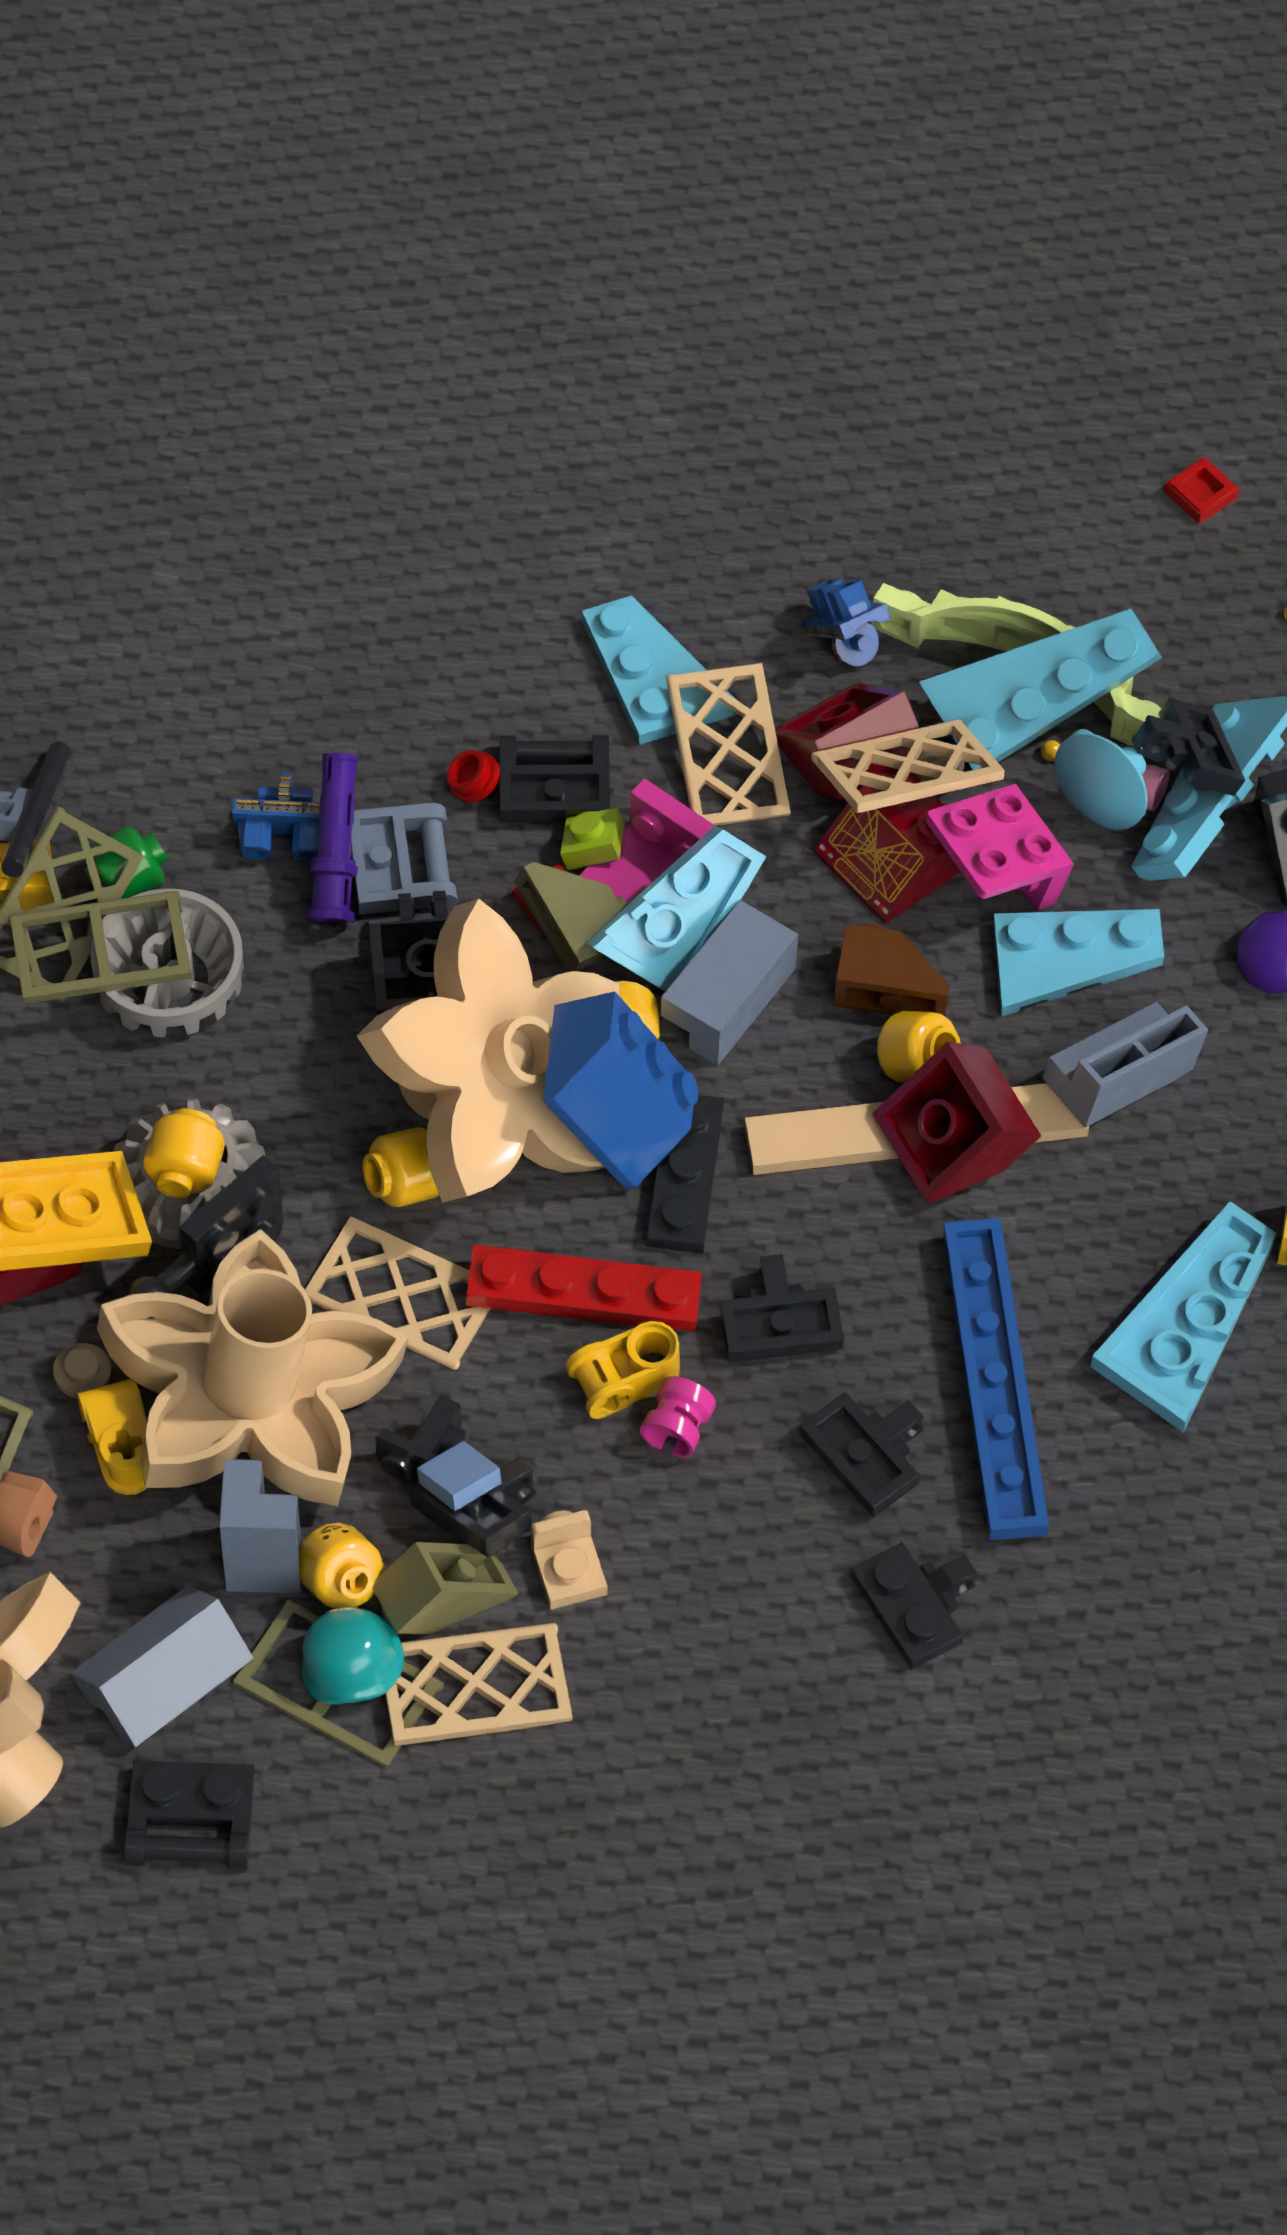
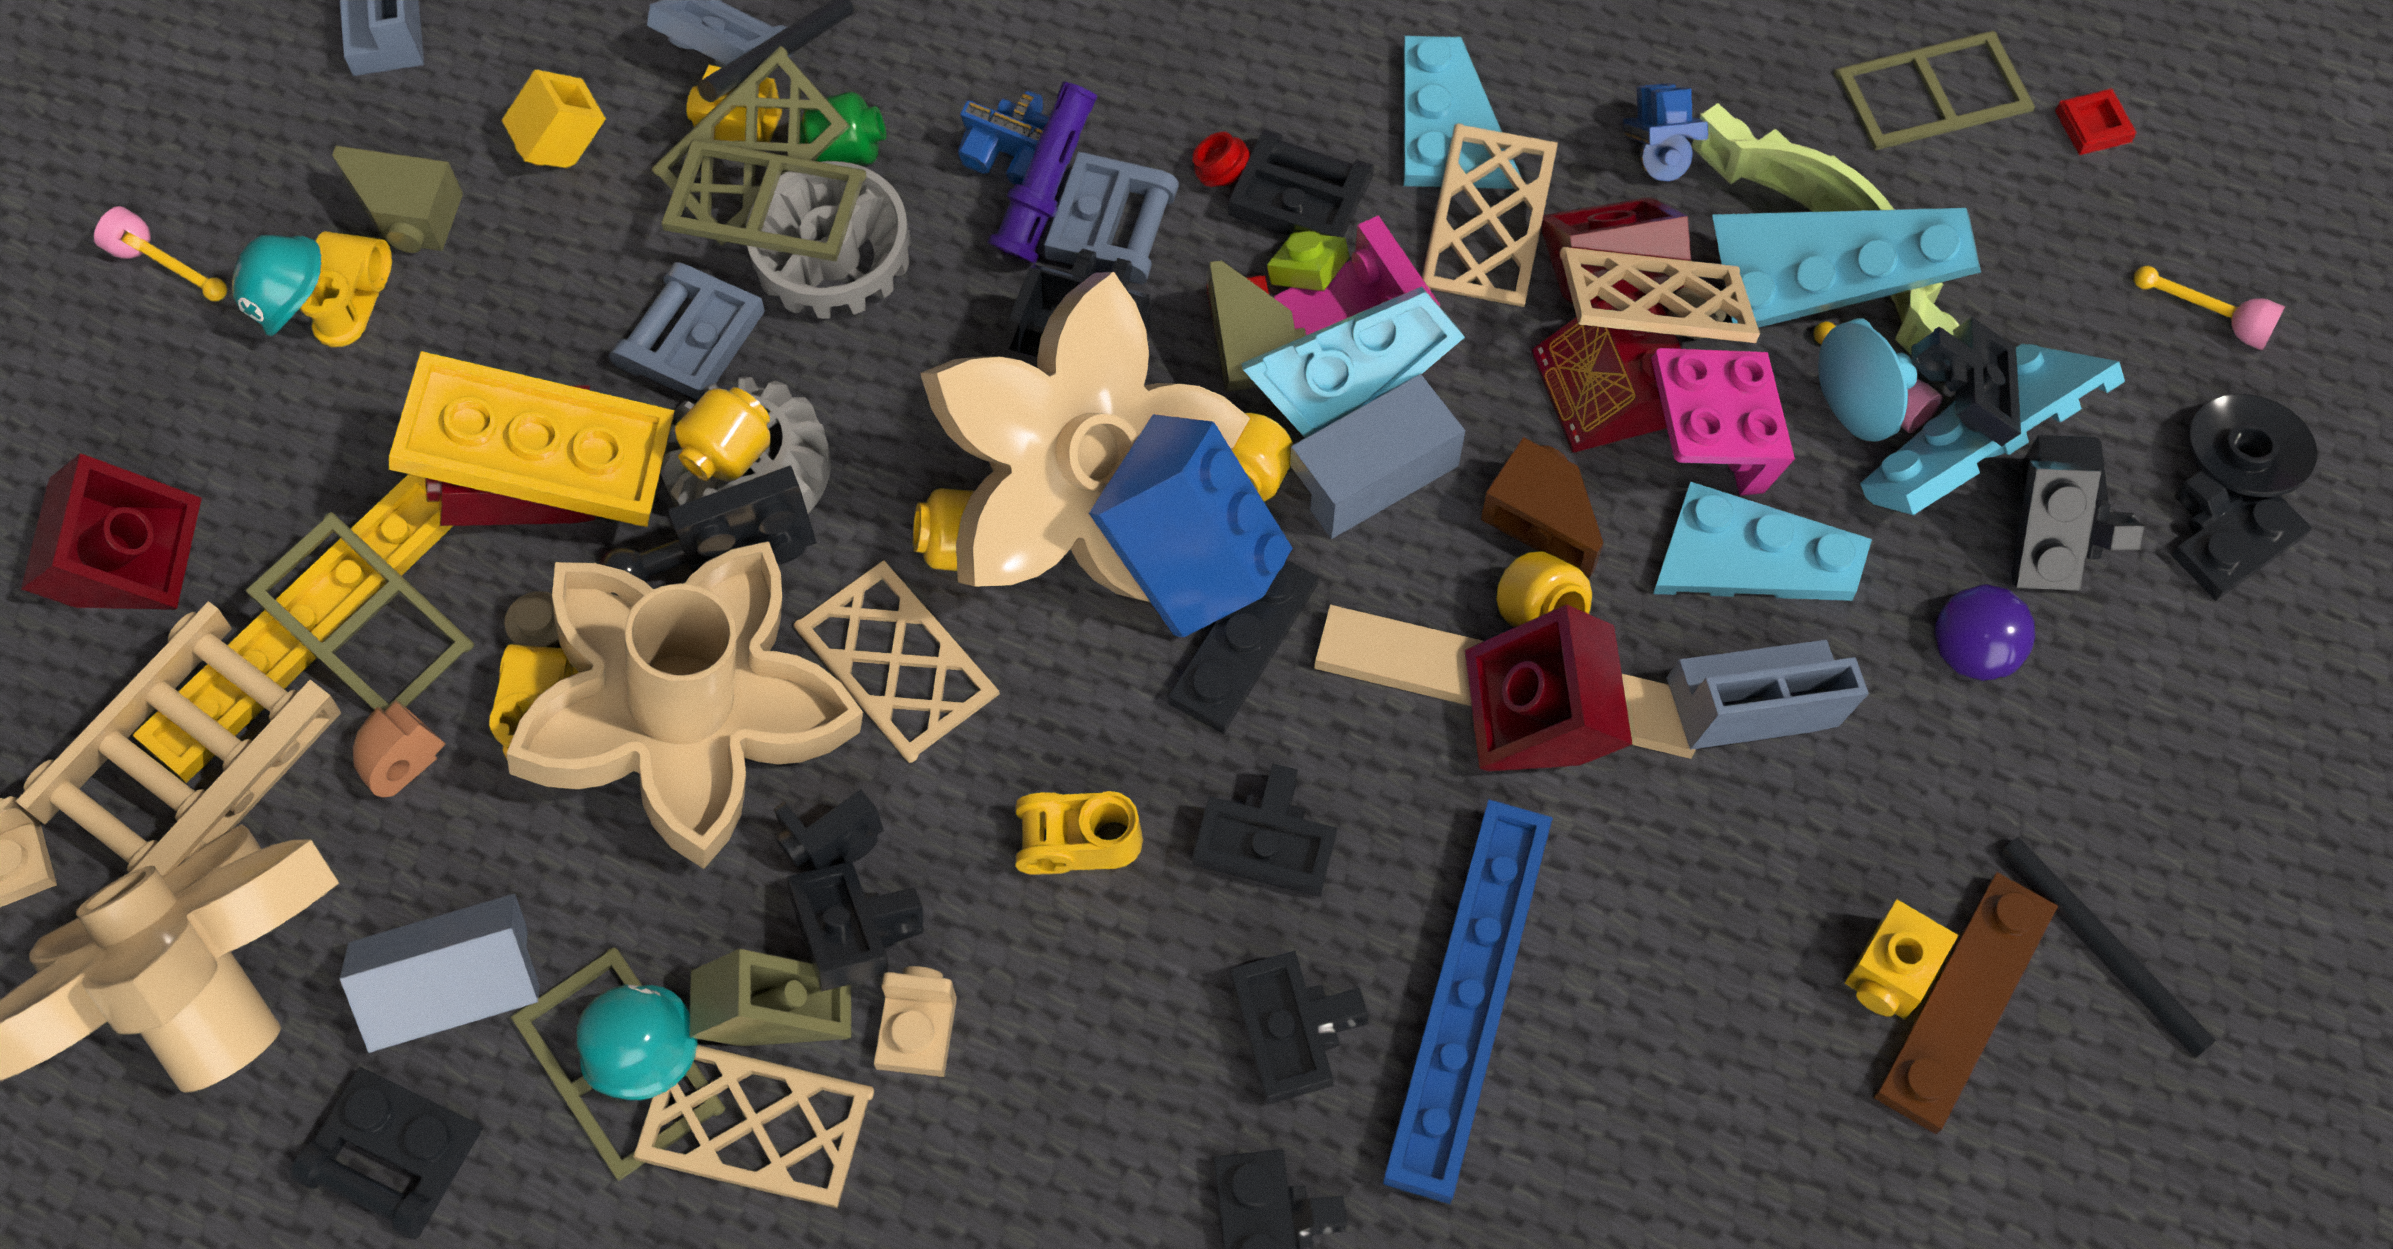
camera: 25 degrees right, 5 degrees up
(96, 1090) = (702, 338): none -> sand blue plate
(258, 1532) = (587, 865): sand blue piece -> none
(339, 1565) = (669, 936): yellow head -> none
(459, 1475) = (838, 886): medium blue tile -> none
(582, 1288) = (1078, 726): red plate -> none
(679, 1413) = (1106, 906): dark pink wheel -> none
(1080, 530) = (1950, 120): none -> olive window
(1182, 1325) = (1705, 1017): medium azure wing -> none

